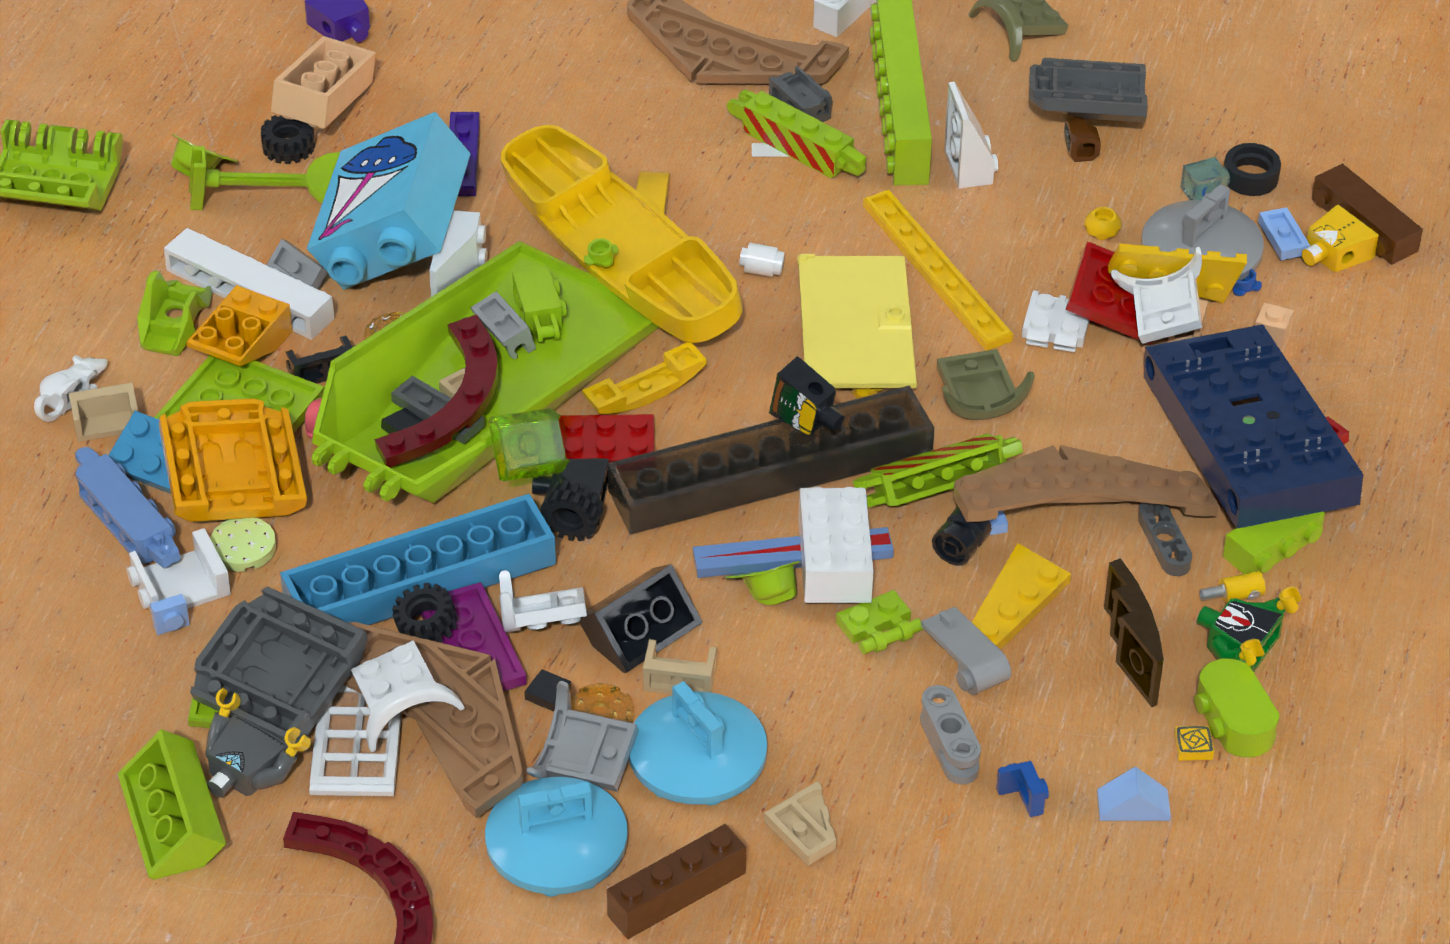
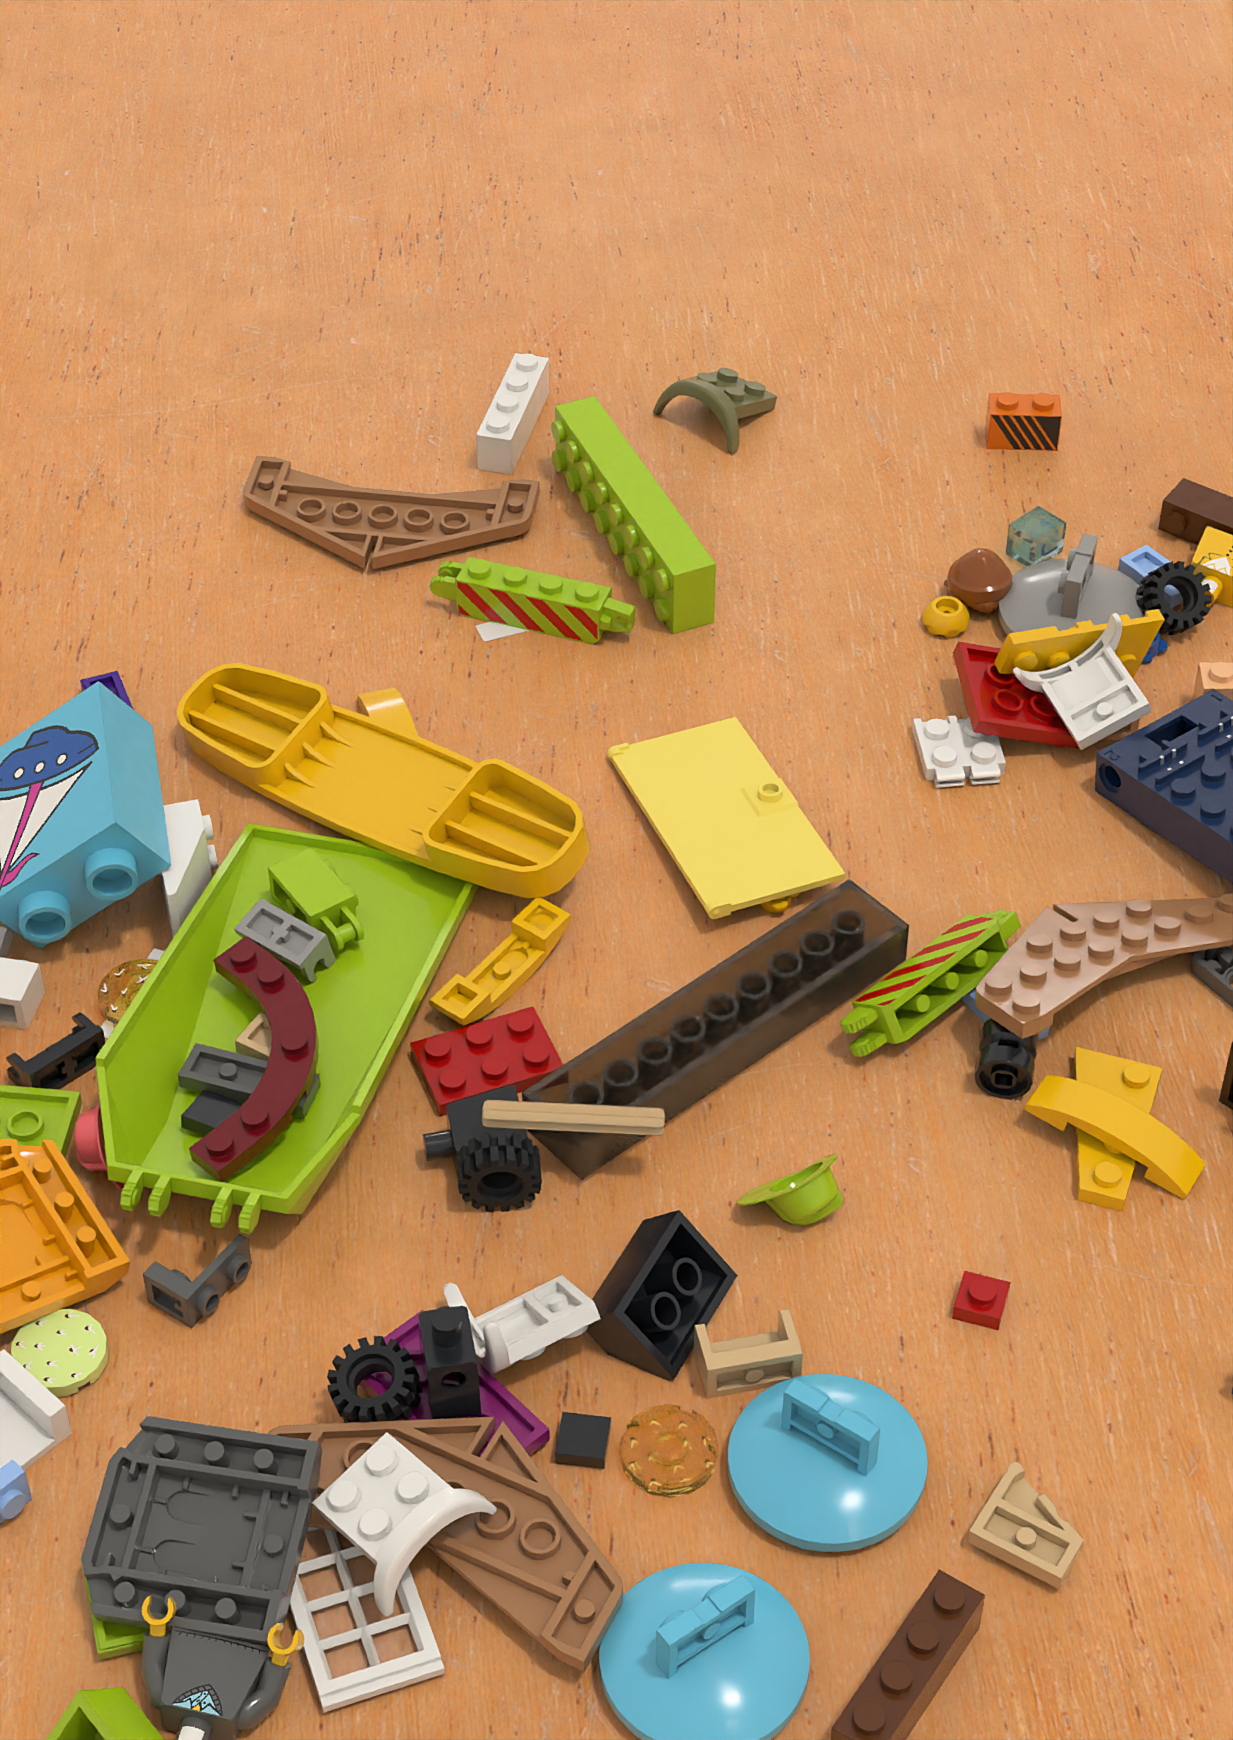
camera: 20 degrees left, 0 degrees up
(344, 534) = (190, 1300): none -> dark grey bracket
(449, 553) = (365, 1285): dark azure brick -> none
(478, 599) = (449, 1348): none -> black torso
(527, 444) = (412, 1097): clear neon green slope -> none
(584, 745) = (681, 1511): light grey piece -> none
(600, 253) = (368, 811): lime plate -> none
(630, 487) = (573, 1117): none -> tan axle
(762, 260) = (568, 767): white brick -> none
(768, 554) = (801, 1143): medium blue tile -> none
(802, 94) = (513, 547): dark grey hinge -> none
(804, 399) = (744, 934): black torso -> none
(835, 545) = (866, 1118): white brick -> none
(857, 683) = (981, 1300): none -> red plate
(871, 619) = (953, 1198): lime plate -> none
(938, 270) = (785, 724): yellow tile -> none
(950, 735) = (1142, 1337): light grey piece -> none
(966, 144) = (746, 559): white slope -> none
(979, 660) = (1126, 1222): light grey door -> none
(980, 385) = (919, 853): olive piece -> none
(1015, 603) = (1122, 1126): none -> yellow slope
(1081, 139) = (867, 524): reddish brown rock -> none
(1090, 89) = (852, 462): dark grey wedge -> none
(1139, 201) = (979, 580): none -> dark orange hair
(1247, 90) = (1023, 421): none -> orange brick
(1254, 155) = (1086, 495): black tyre -> none
(1296, 247) = (1189, 588): none -> black tyre

